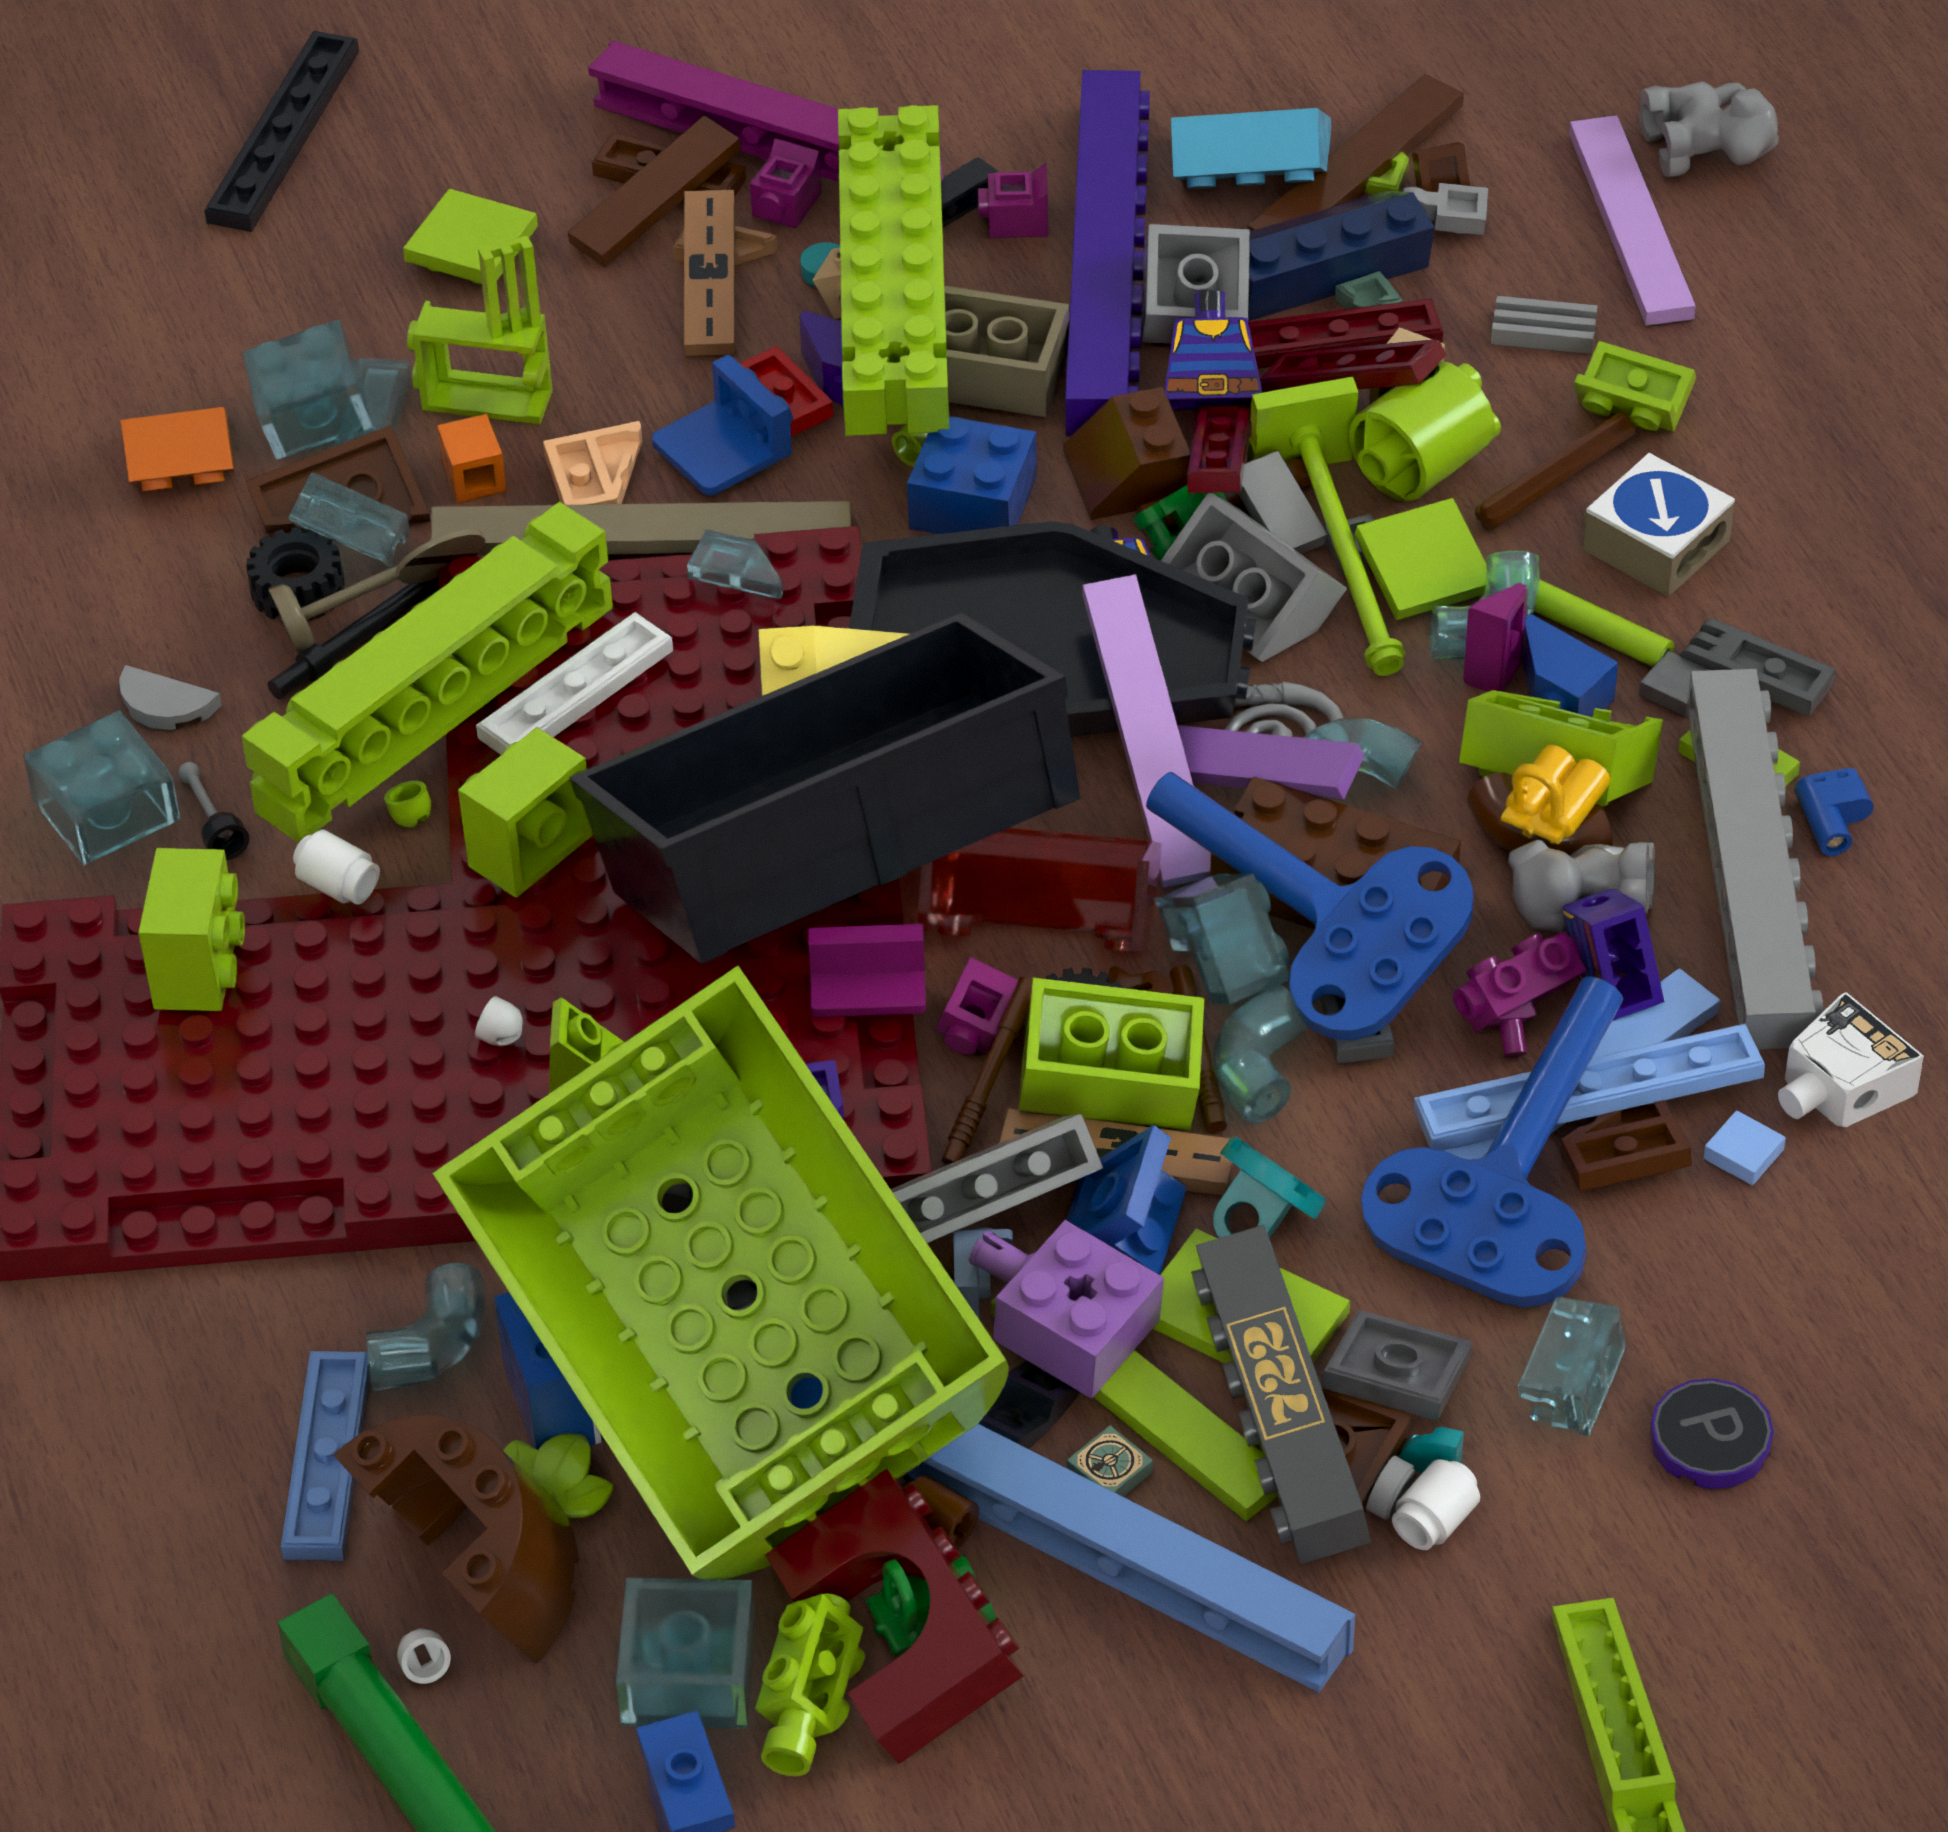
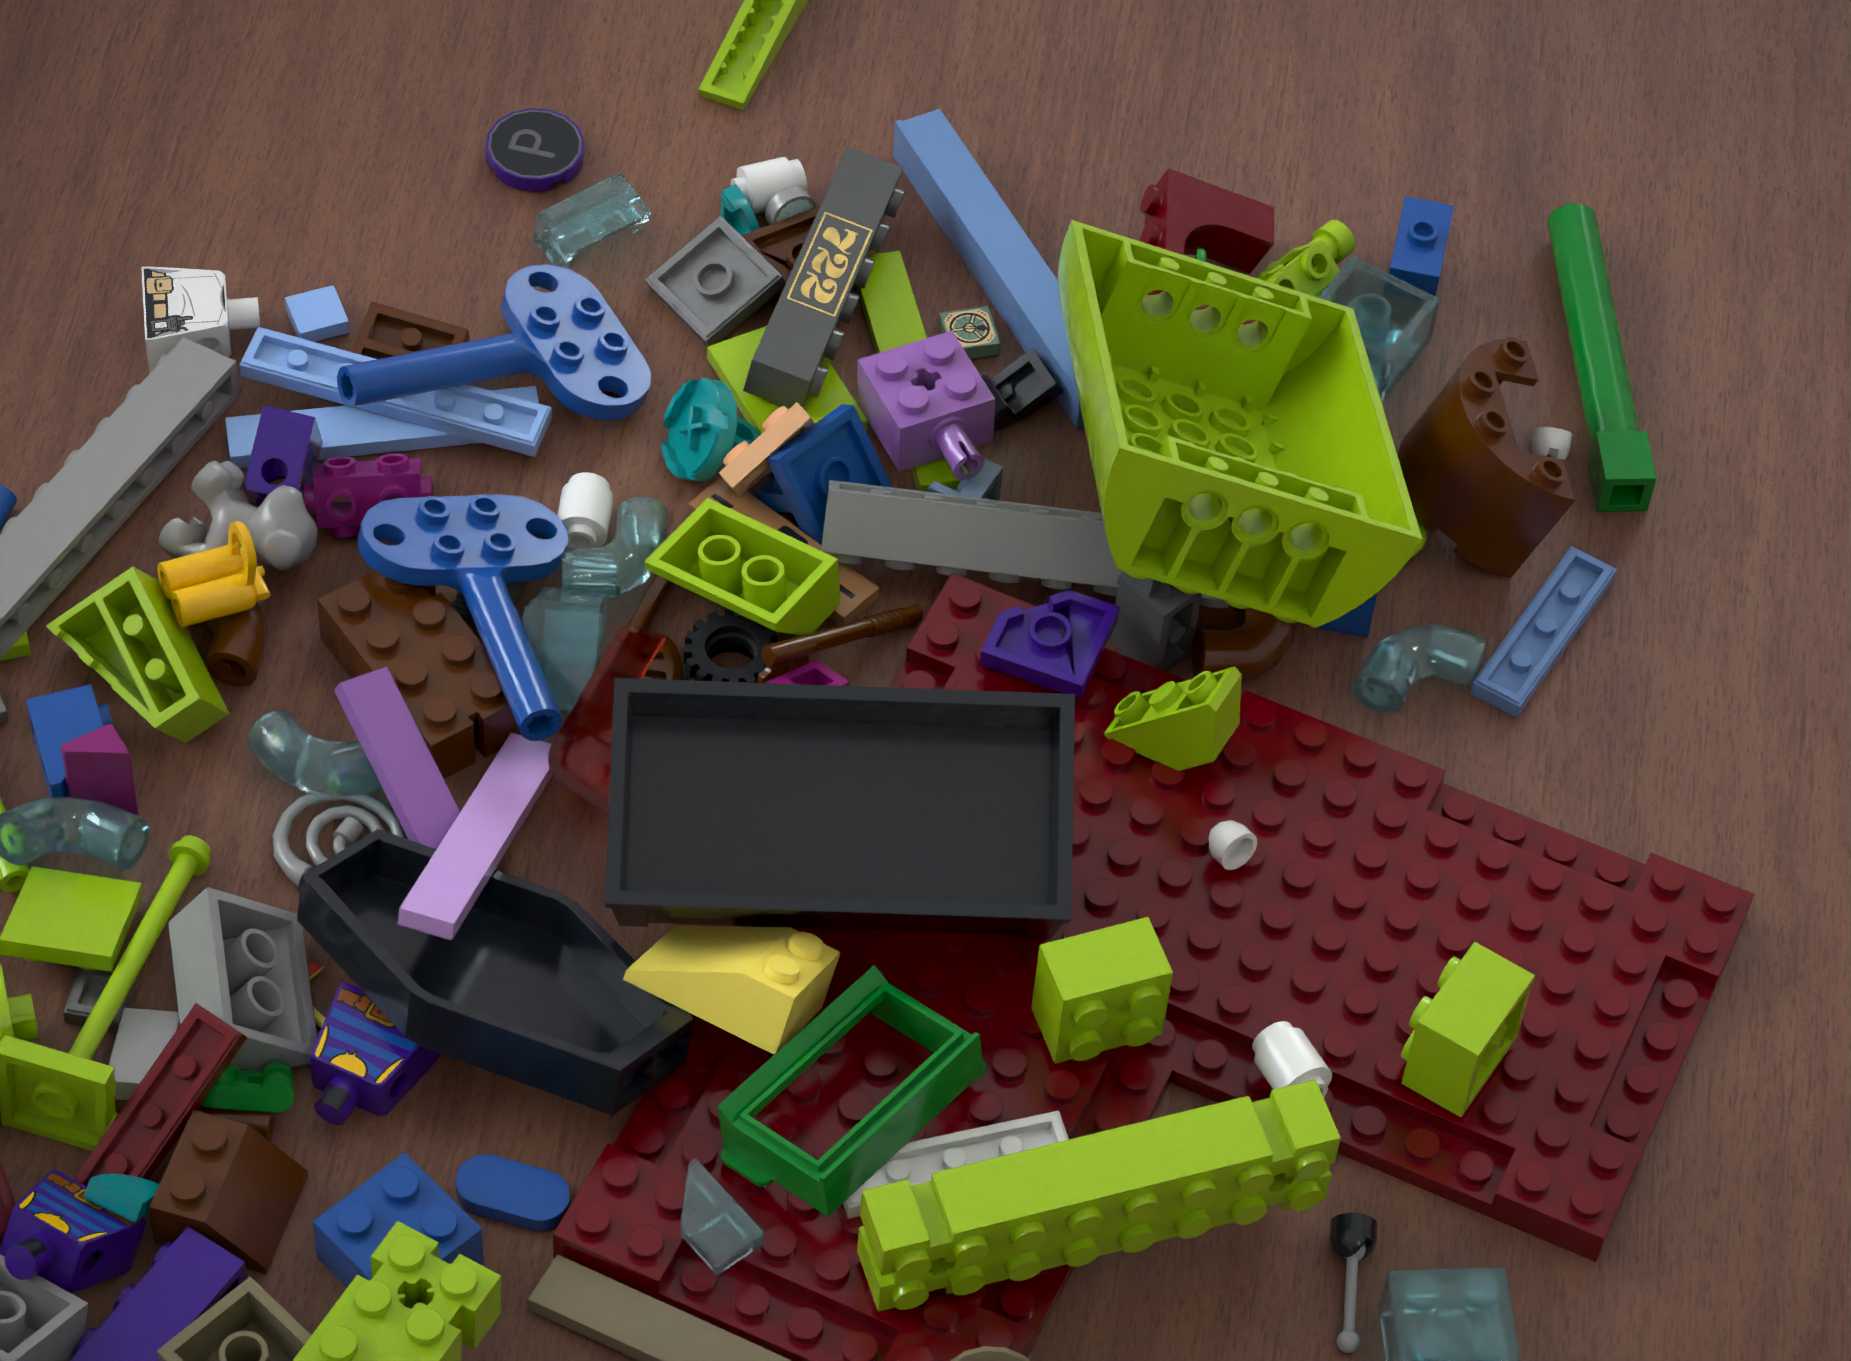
camera: 155 degrees left, 5 degrees up
(745, 604) = (828, 1182): none -> green piece
(1182, 1184) = (748, 463): none -> light nougat wing
(1190, 394) = (122, 1194): none -> teal tile
(1319, 1075) = (586, 510): none -> white brick

